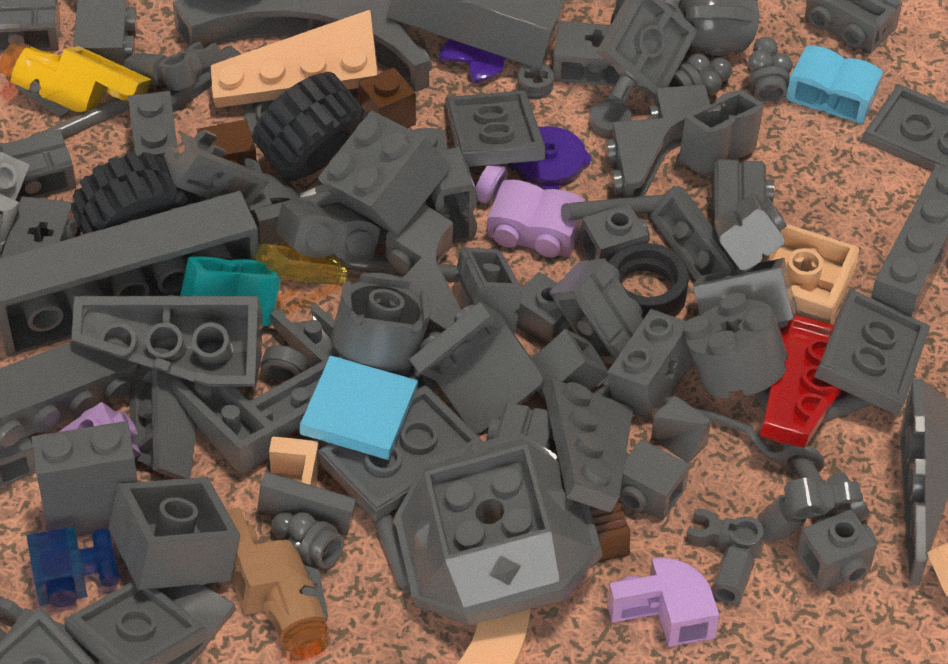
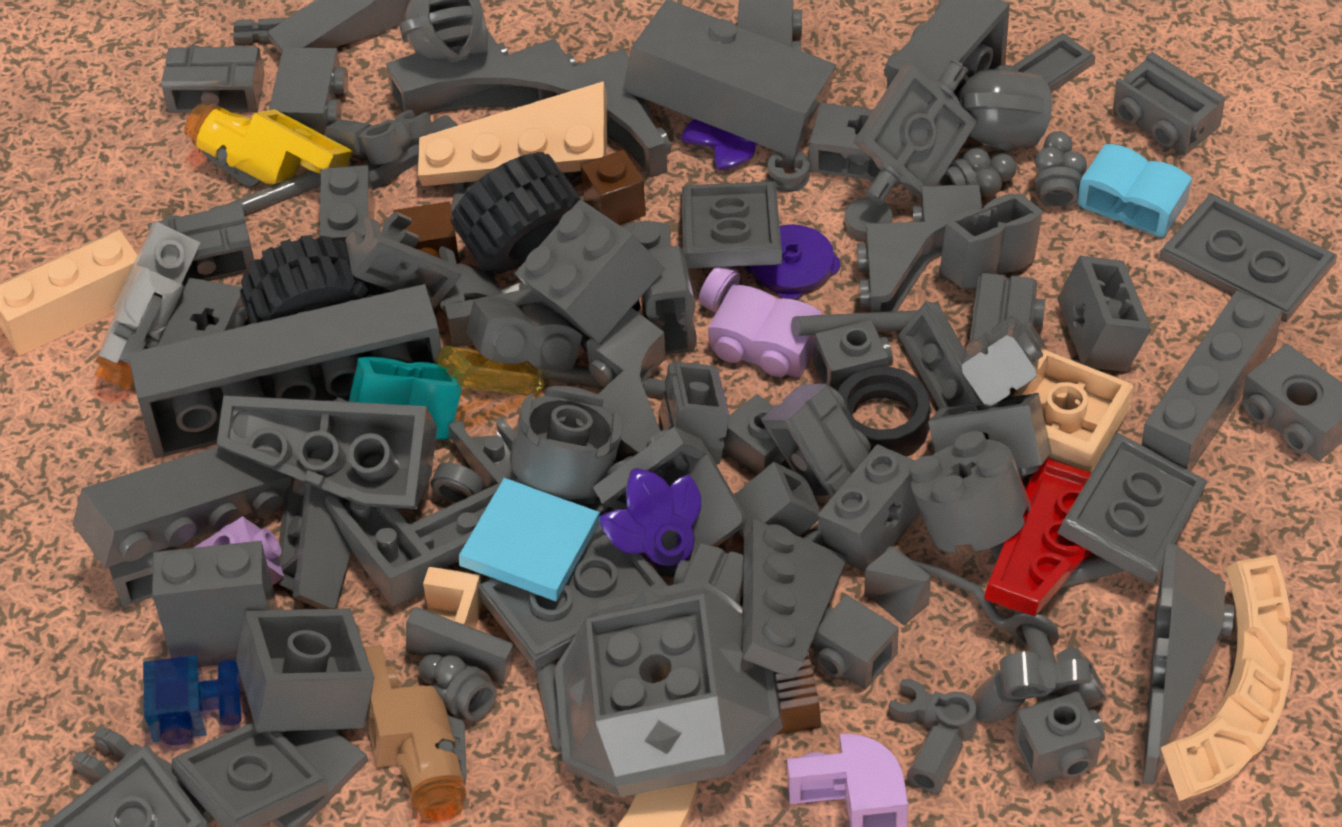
camera: 10 degrees right, 0 degrees up
(464, 378) = (650, 513): none -> dark purple plate
(825, 189) = (1103, 313): none -> dark grey brick

